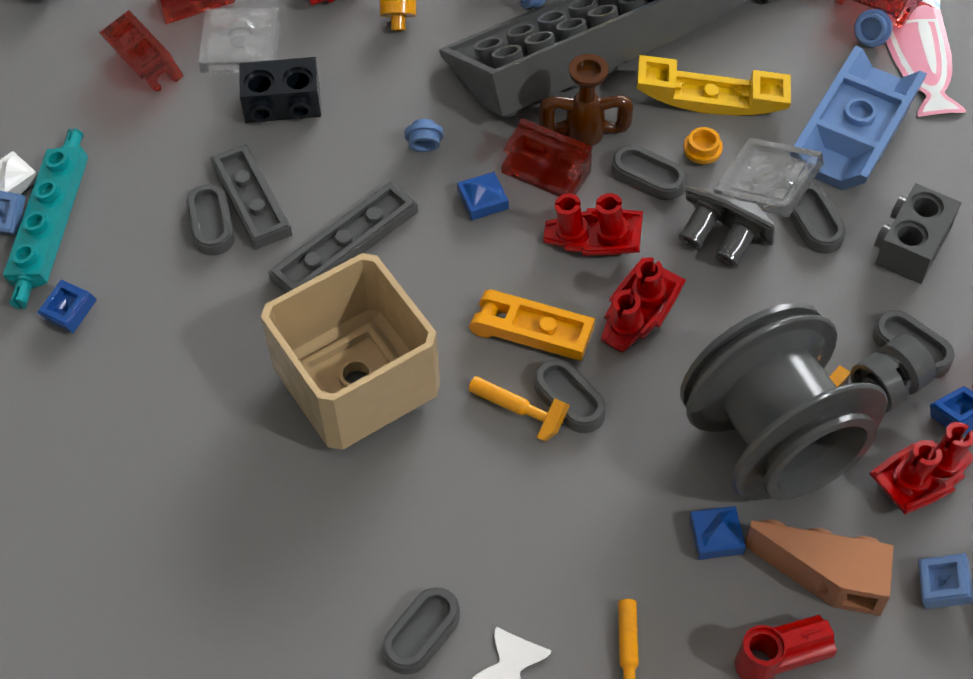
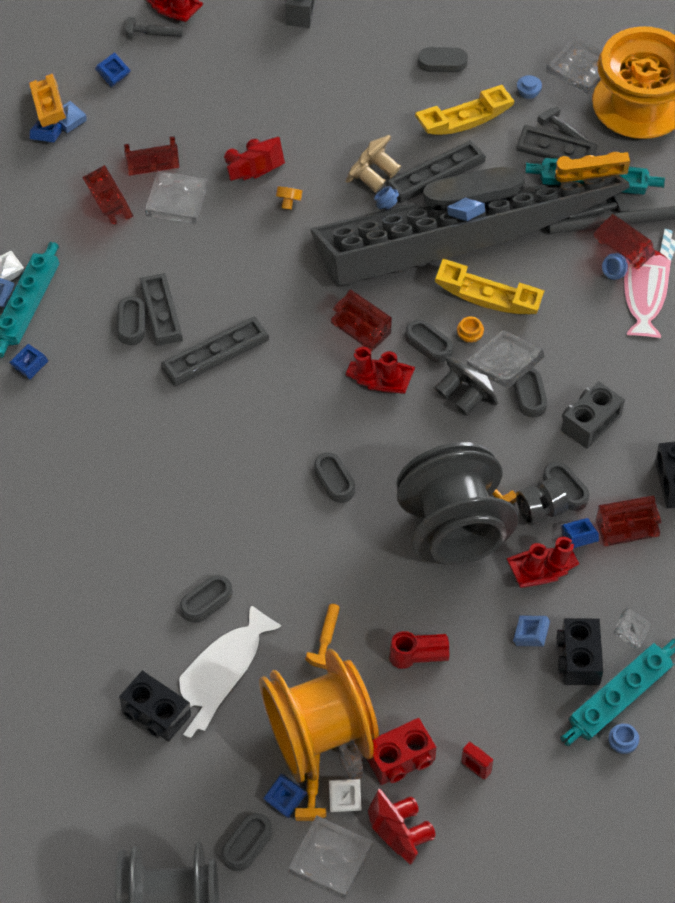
camera: 10 degrees right, 0 degrees up
(279, 89) = (195, 239): black brick -> none
(347, 324) = (195, 407): tan plate -> none
(424, 135) = (284, 288): medium blue plate -> none
(482, 196) = (313, 337): blue tile -> none
(533, 324) = (322, 428): light orange plate -> none
(551, 420) = (317, 489): light orange piece -> none
(585, 111) = (395, 292): reddish brown piece -> none
(640, 303) = (395, 427): red connector -> none
(717, 532) = (401, 577): blue tile -> none
(835, 568) = (466, 610): nougat slope -> none
(858, 120) = (580, 329): medium blue piece -> none

